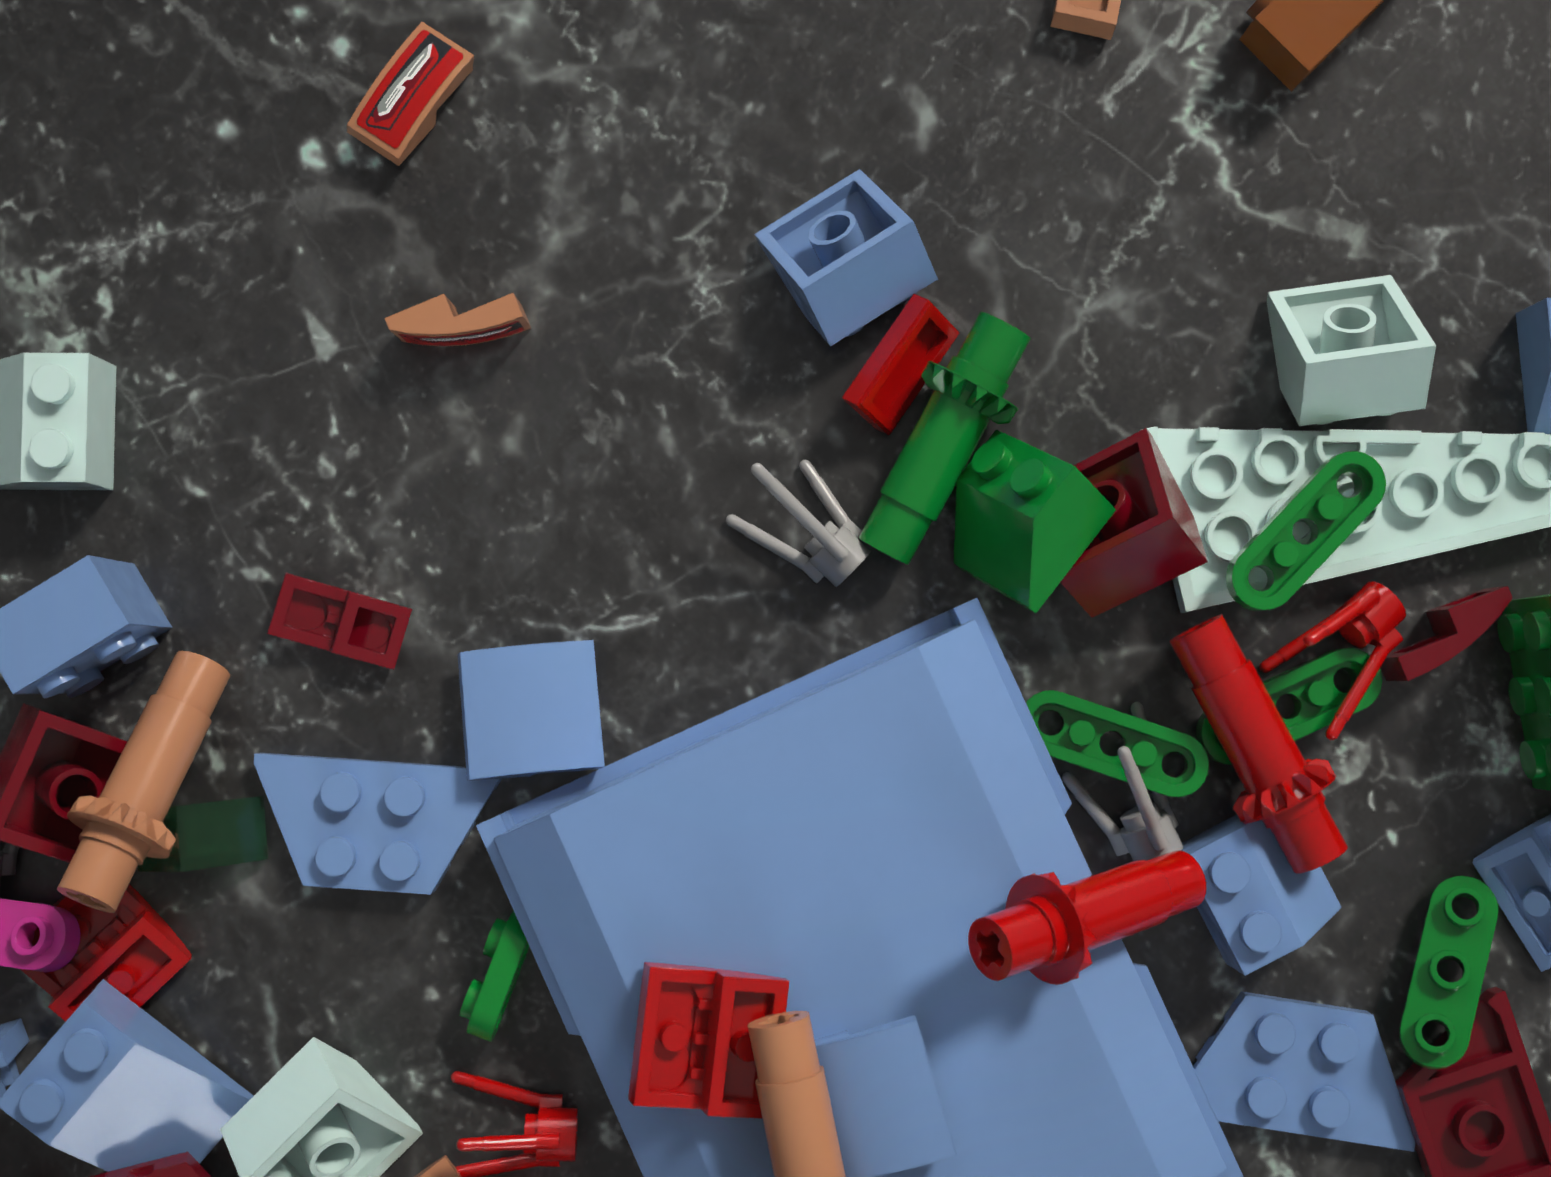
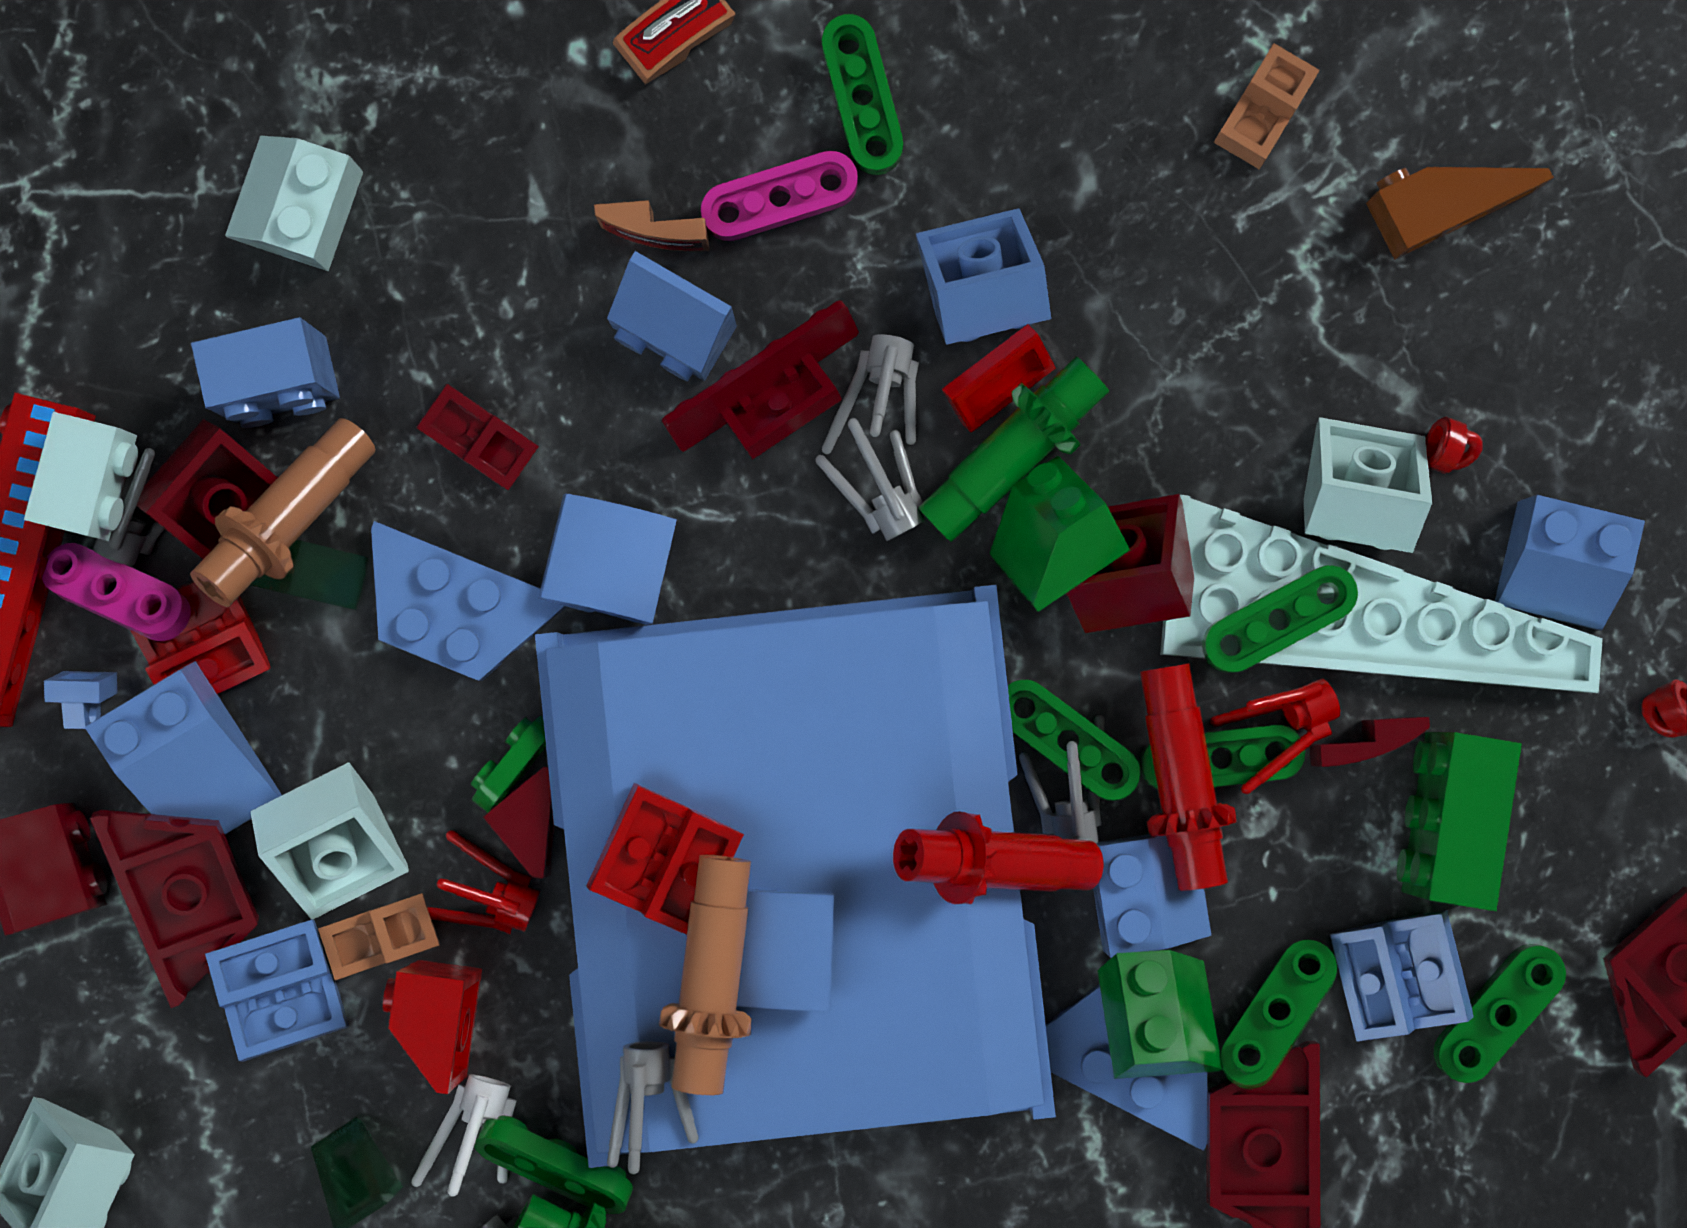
camera: 20 degrees right, 0 degrees up
(511, 417) = (670, 318): none -> medium blue slope
(537, 1041) = (527, 824): none -> dark red slope
(603, 216) = (797, 178): none -> dark pink plate
(639, 74) = (862, 72): none -> green plate
(652, 461) = (770, 391): none -> dark red bracket
(772, 388) = (888, 364): none -> light grey plant
(1317, 1021) = (1158, 1014): none -> green slope
(1426, 274) = (1447, 444): none -> red tile

